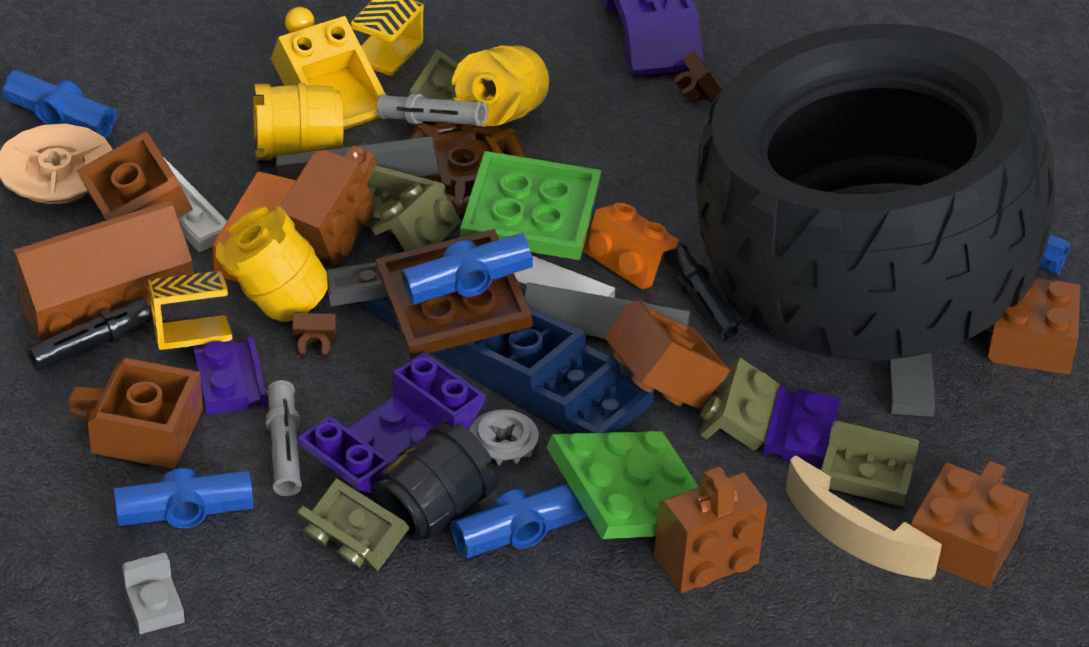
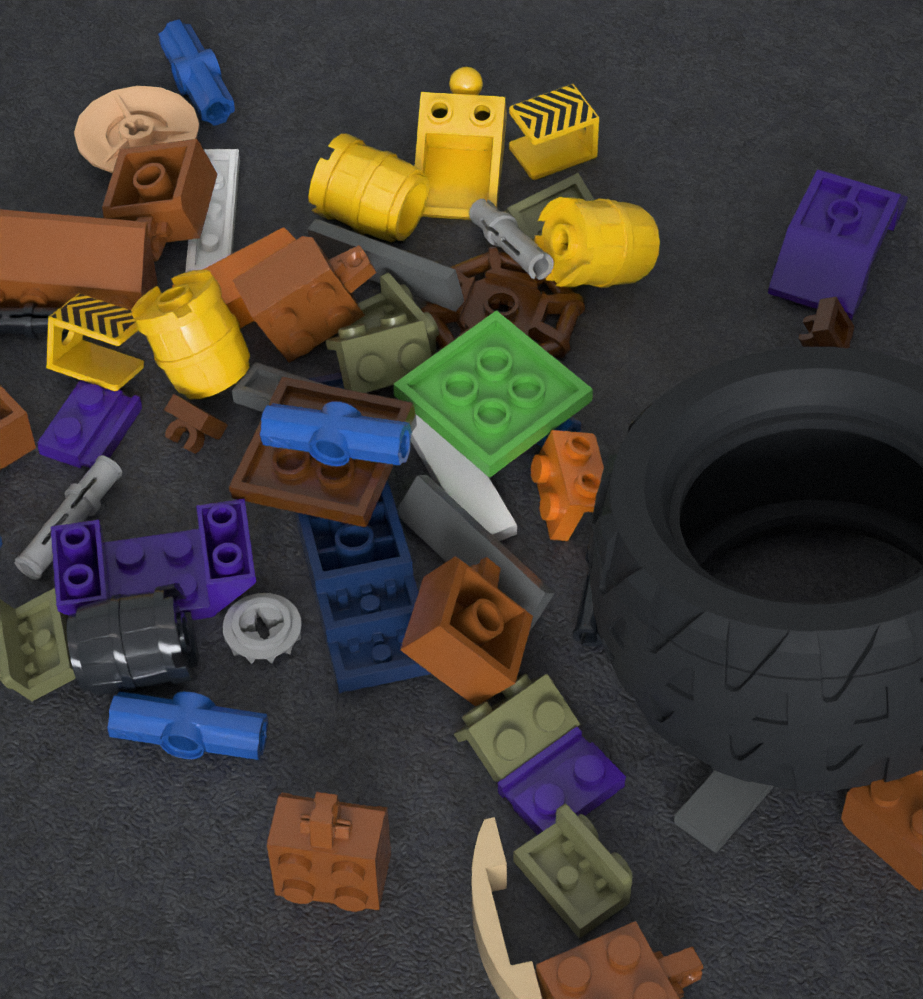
camera: 40 degrees right, 10 degrees up
(621, 478) = (315, 738): bright green plate -> none

